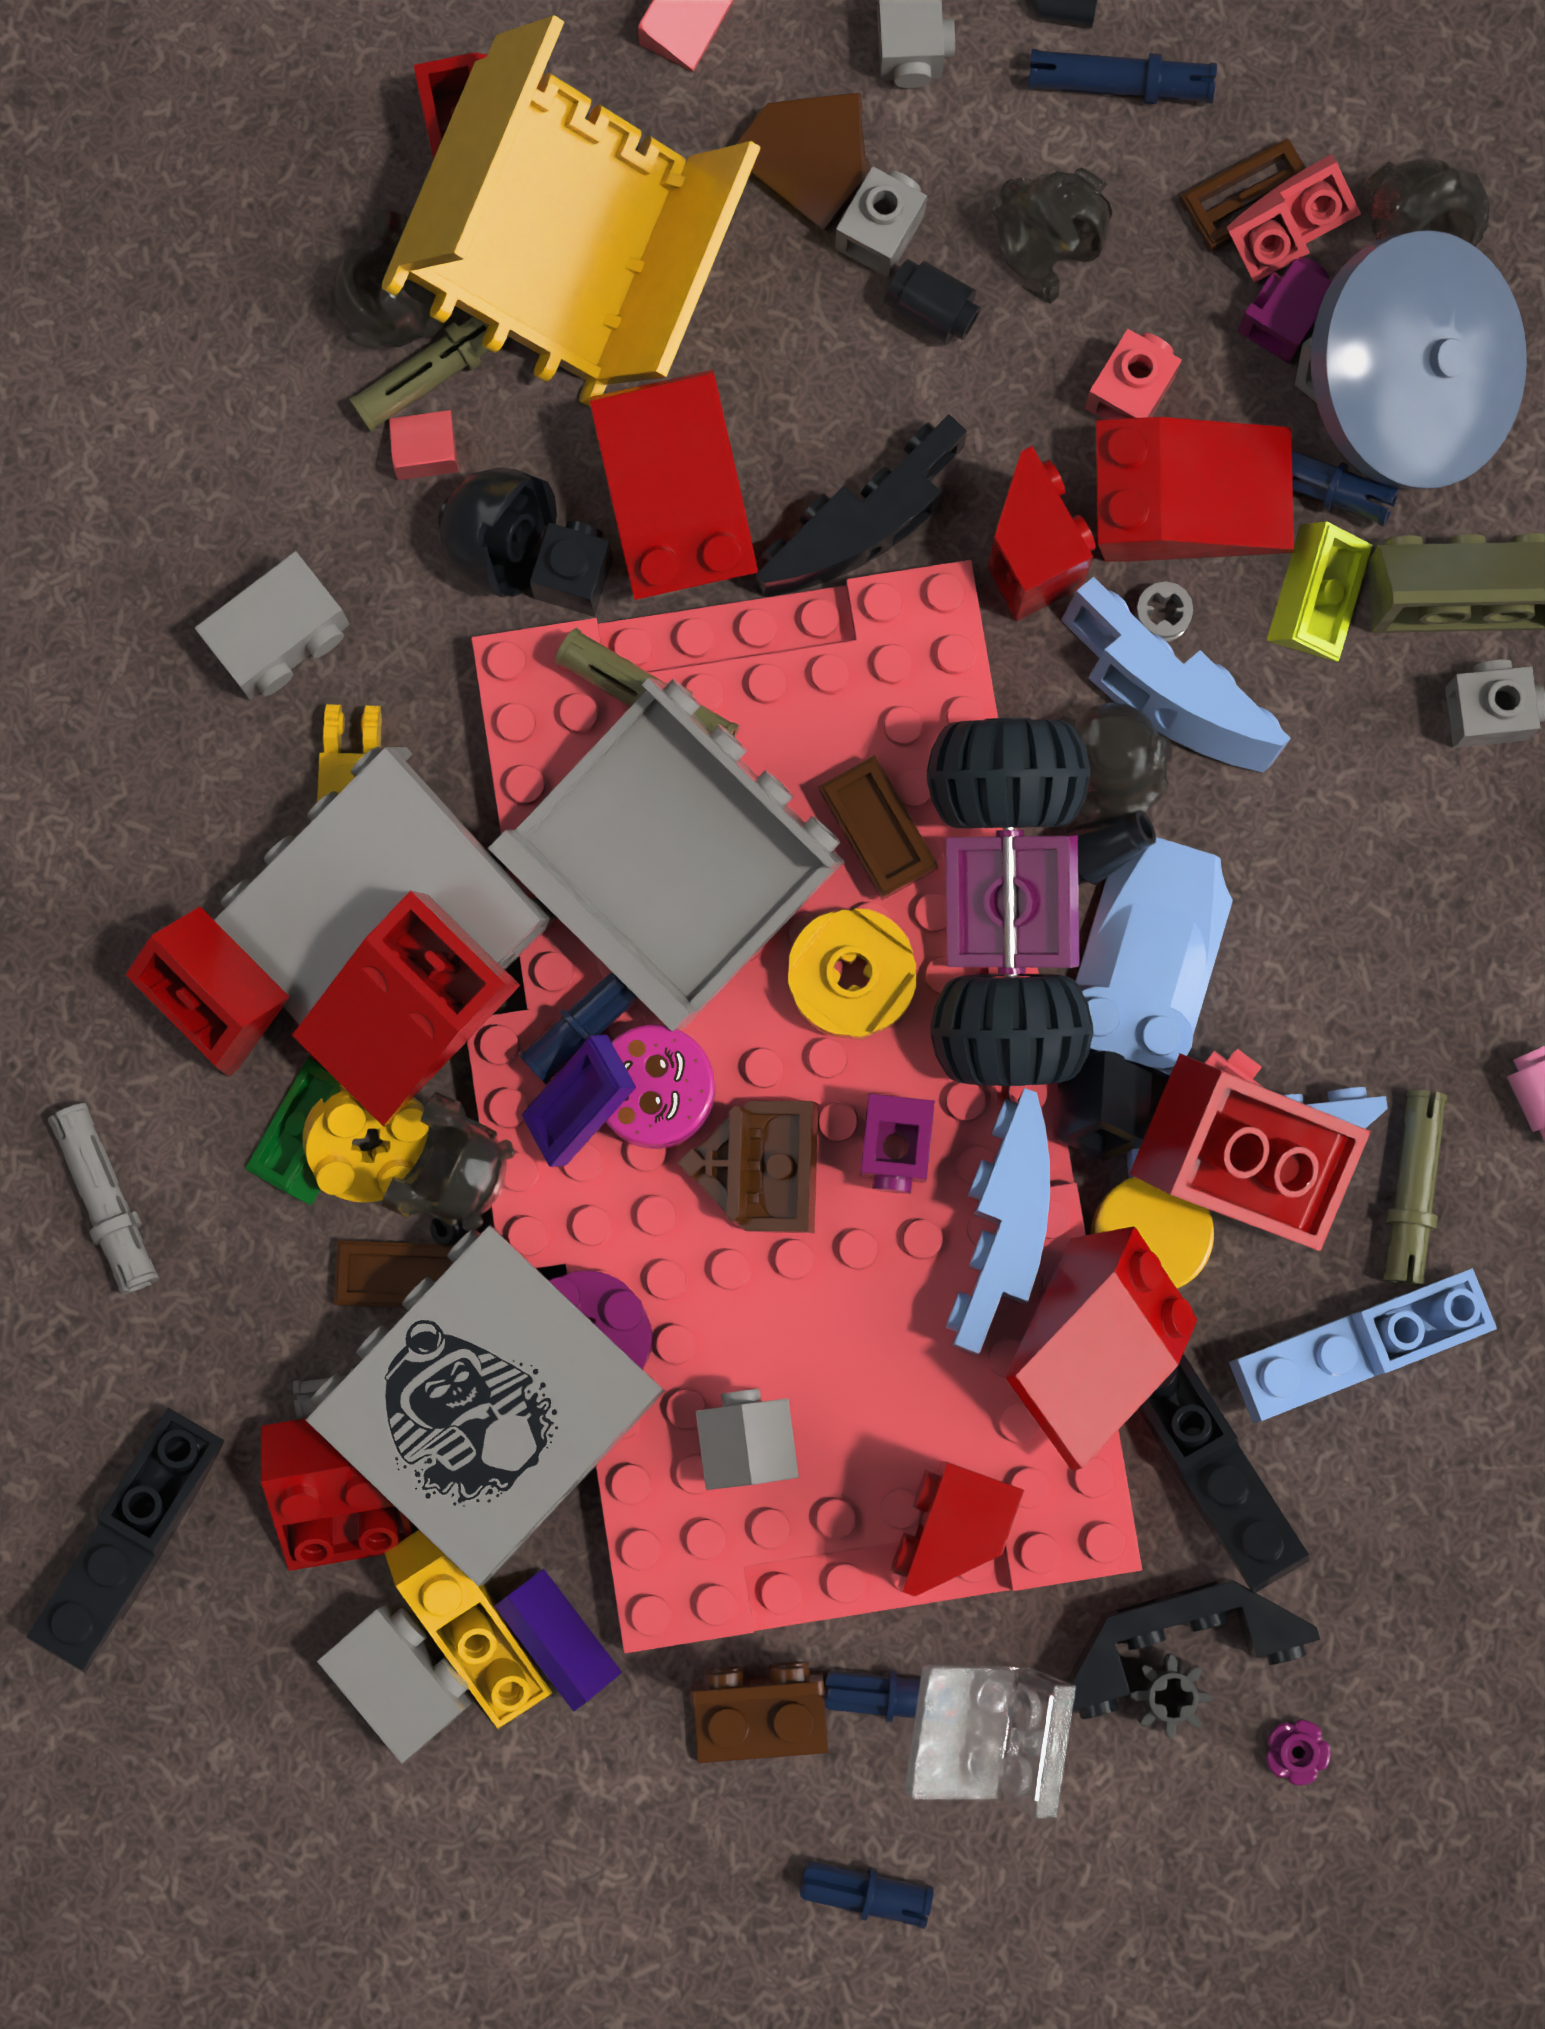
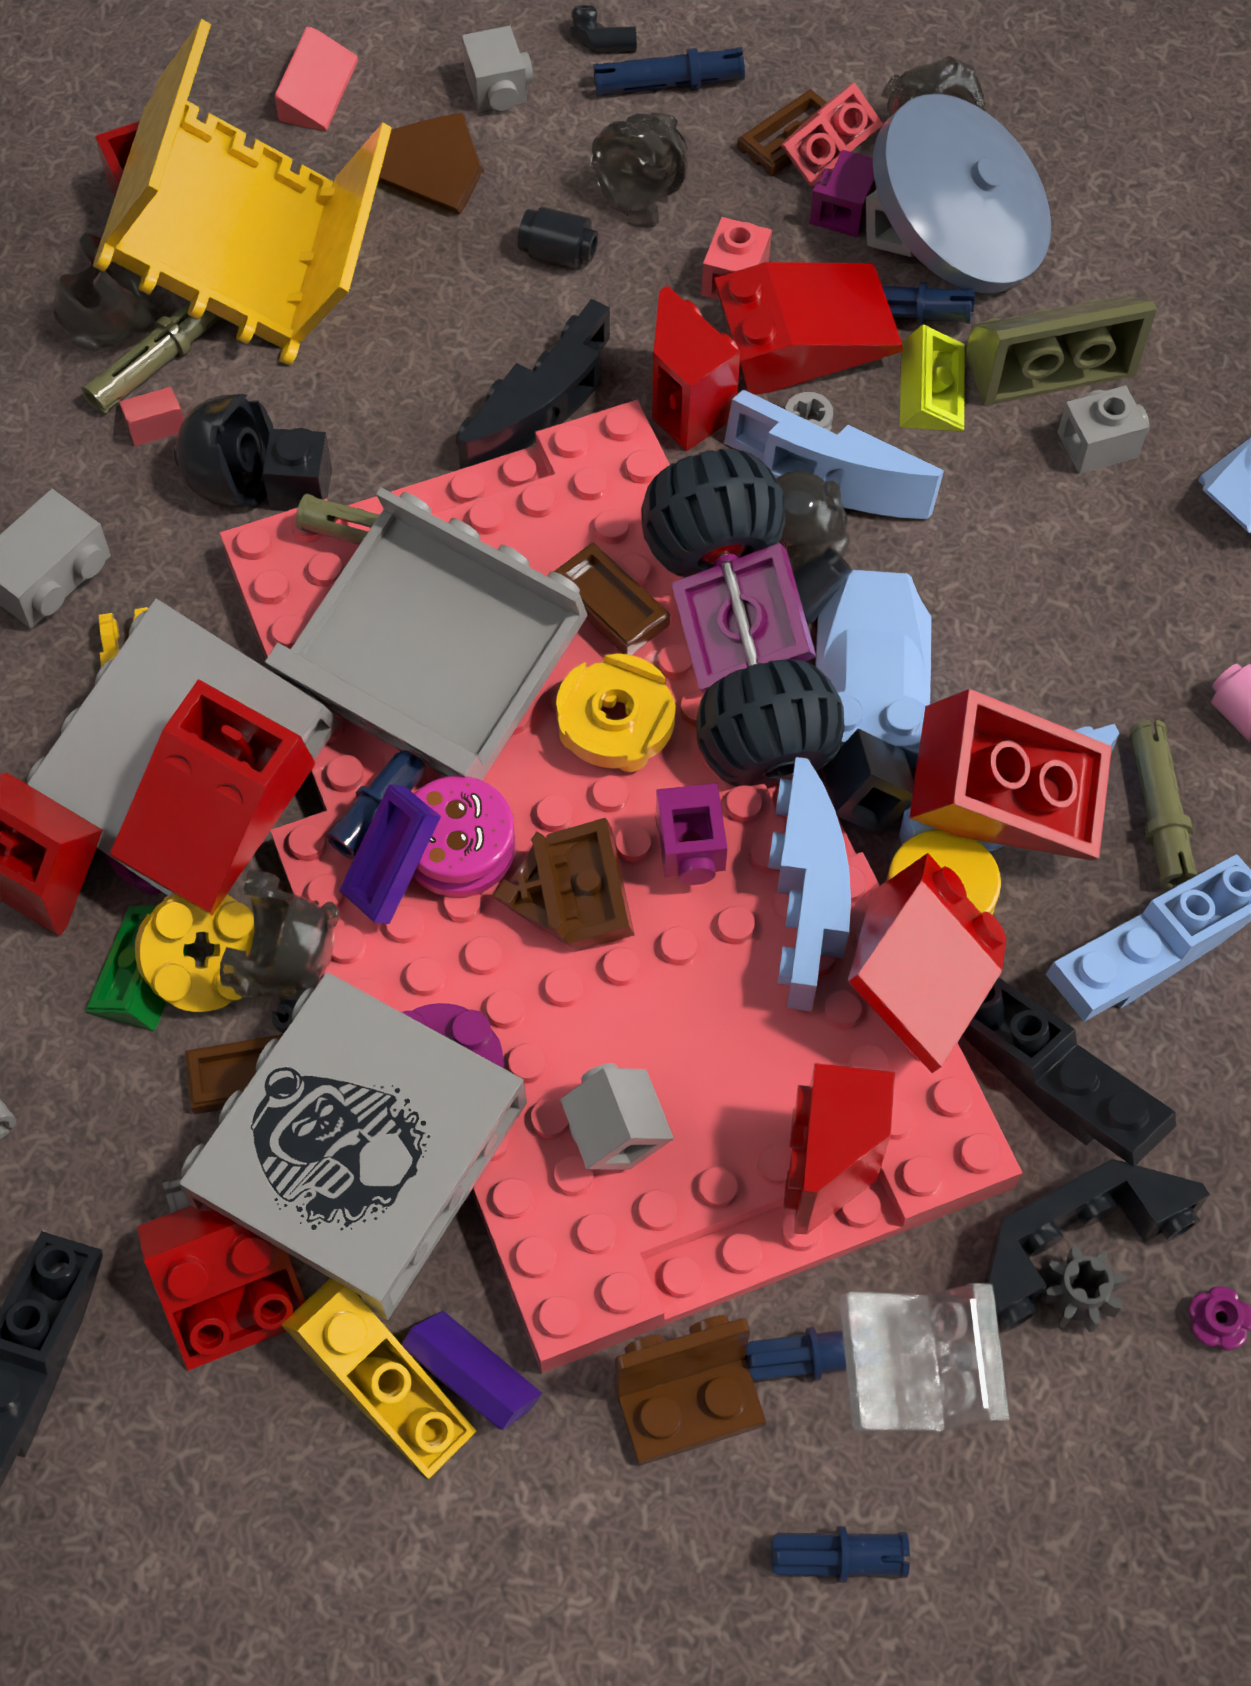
camera: 15 degrees left, 20 degrees down
(396, 1680) = (317, 1442): light grey brick -> none
(673, 484) = (371, 381): red slope -> none
(881, 220) = (501, 191): light grey brick -> none

